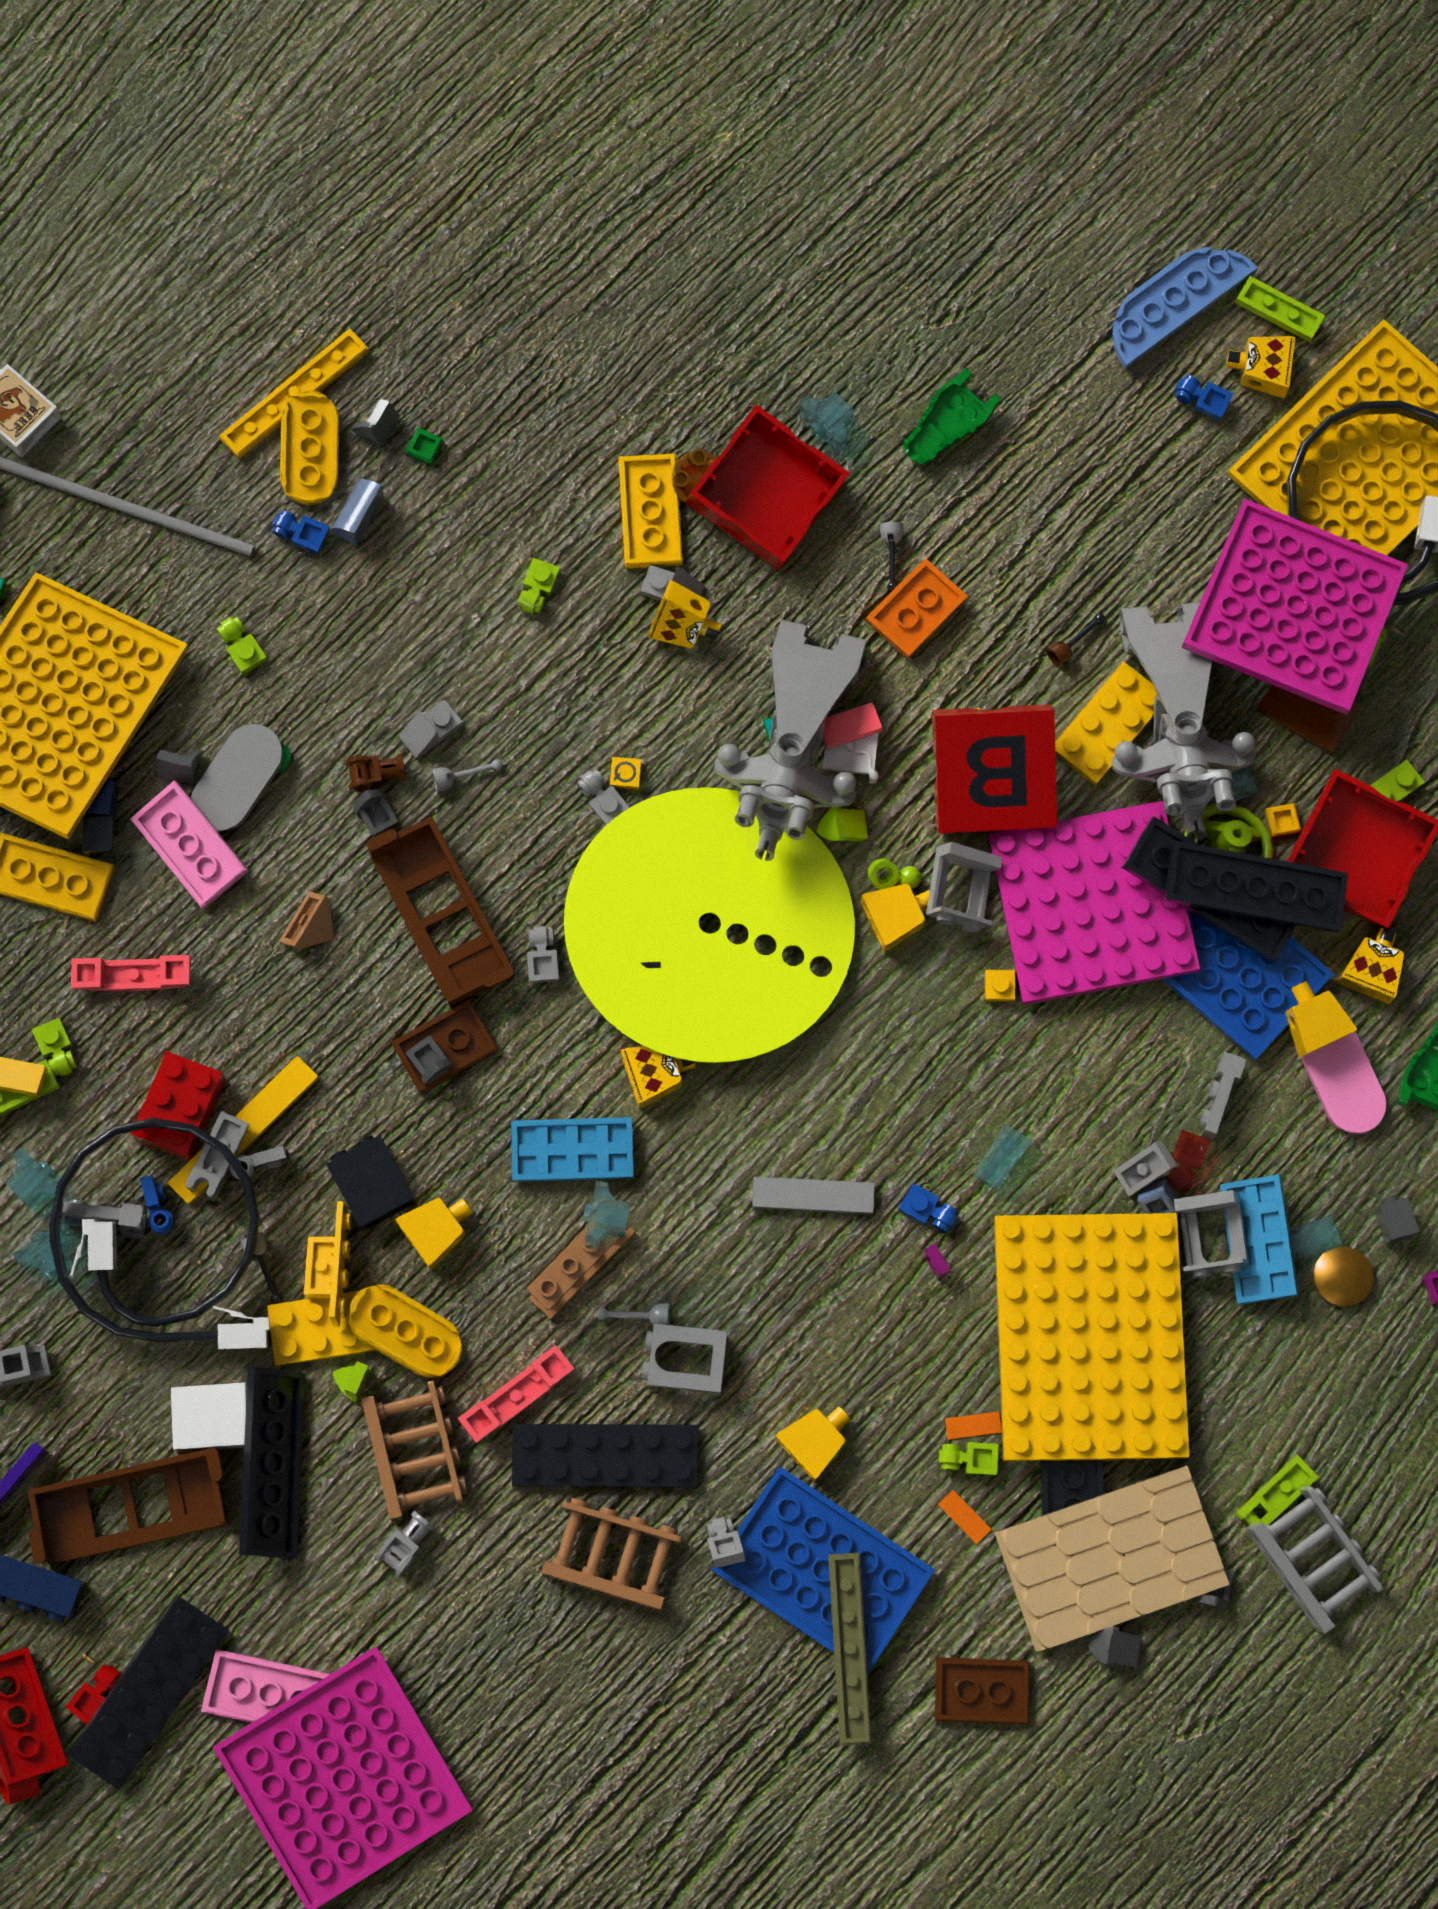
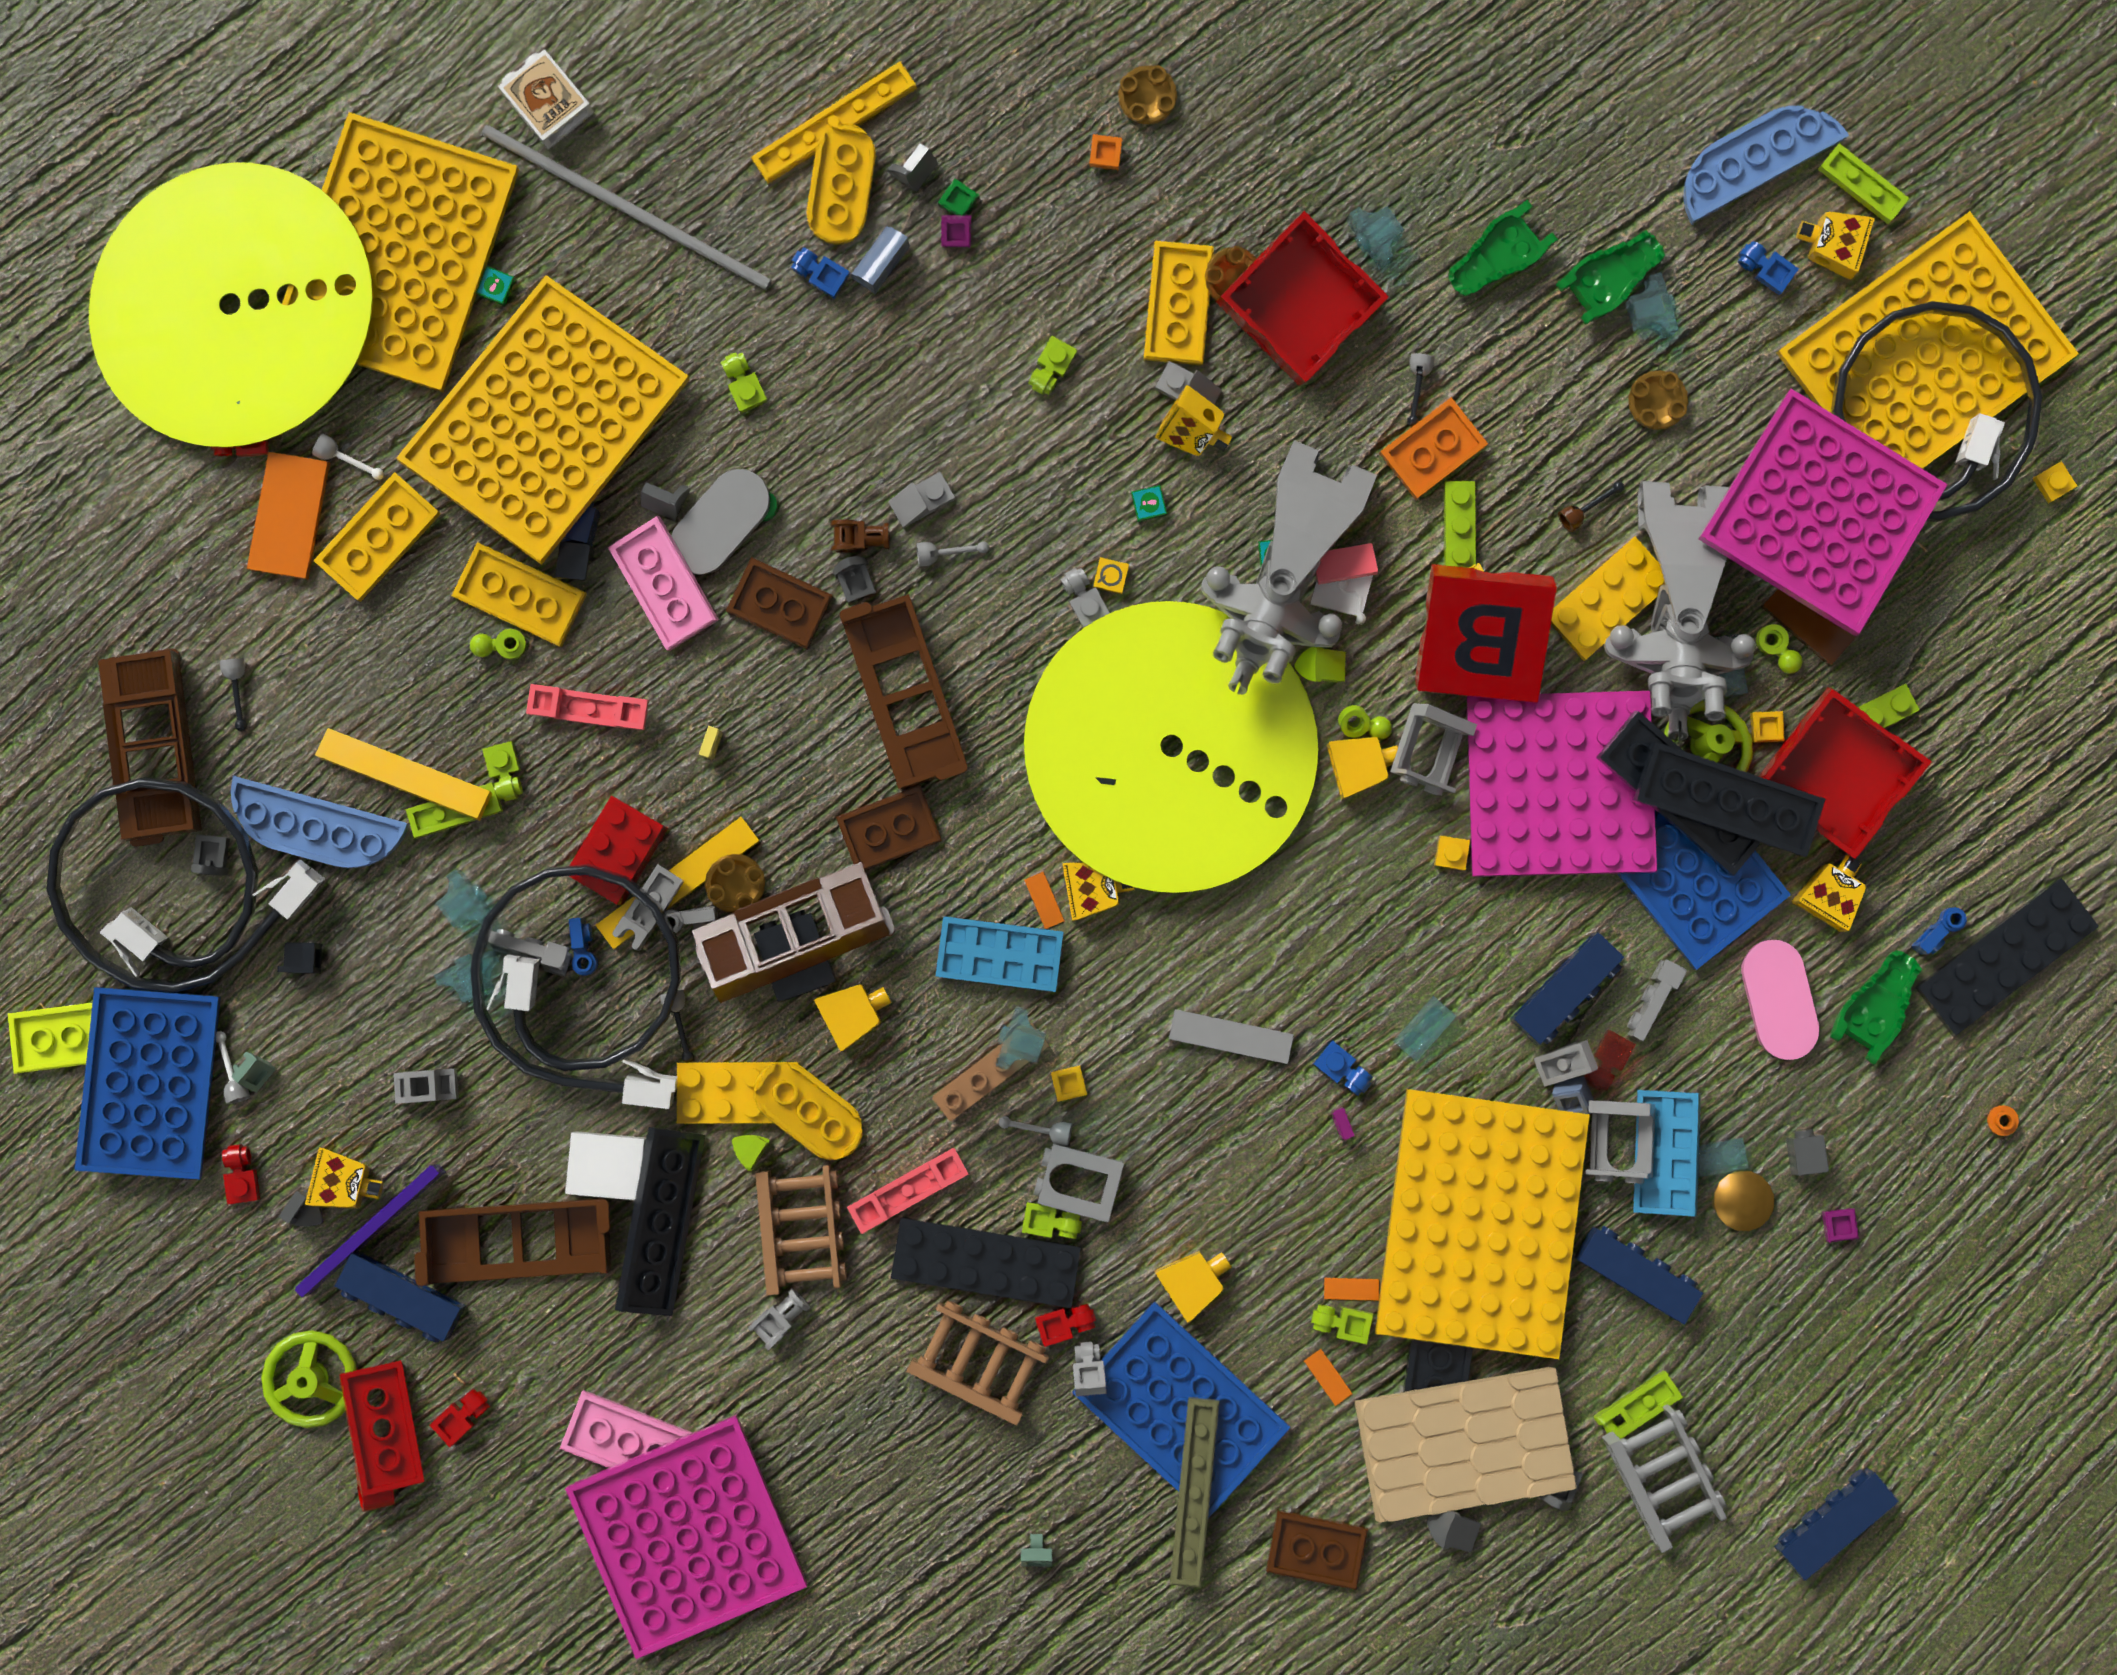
camera: 15 degrees right, 10 degrees up
(19, 929) = (483, 645): none -> lime plate
(147, 1692) = (510, 1423): black plate -> none
(257, 989) = (710, 743): none -> light yellow tile
(300, 1121) = (734, 882): none -> pearl gold dish
(305, 847) = (779, 603): none -> reddish brown tile
(308, 1190) = (849, 908): none -> reddish brown piece
(310, 924) = (772, 684): medium nougat slope -> none
(325, 1265) = (739, 1036): yellow bracket -> none
(426, 475) = (955, 231): none -> magenta tile
(429, 1060) = (871, 842): dark grey tile -> none
(543, 962) = (998, 761): light grey plate -> none
(558, 382) = (1105, 152): none -> orange plate
(590, 325) = (1147, 94): none -> pearl gold dish
(608, 1092) = (1044, 900): none -> orange sticker
(651, 700) = (1148, 503): none -> tile
(654, 1403) = (1042, 1219): none -> lime plate
(660, 1266) = (1068, 1083): none -> yellow tile
(685, 1507) = (1056, 1327): none -> red plate
(700, 1740) = (1036, 1555): none -> sand green tile
(953, 671) = (1459, 523): none -> lime plate
(1055, 426) = (1609, 275): none -> green animal
(1103, 449) = (1653, 308): none -> clear light blue brick
(1123, 532) = (1658, 399): none -> pearl gold dish
(1133, 1097) = (1567, 988): none -> dark blue brick
(1253, 1364) = (1639, 1275): none -> dark blue brick
(1291, 755) = (1789, 660): none -> lime plate
(1316, 1020) = (1765, 942): yellow torso -> none

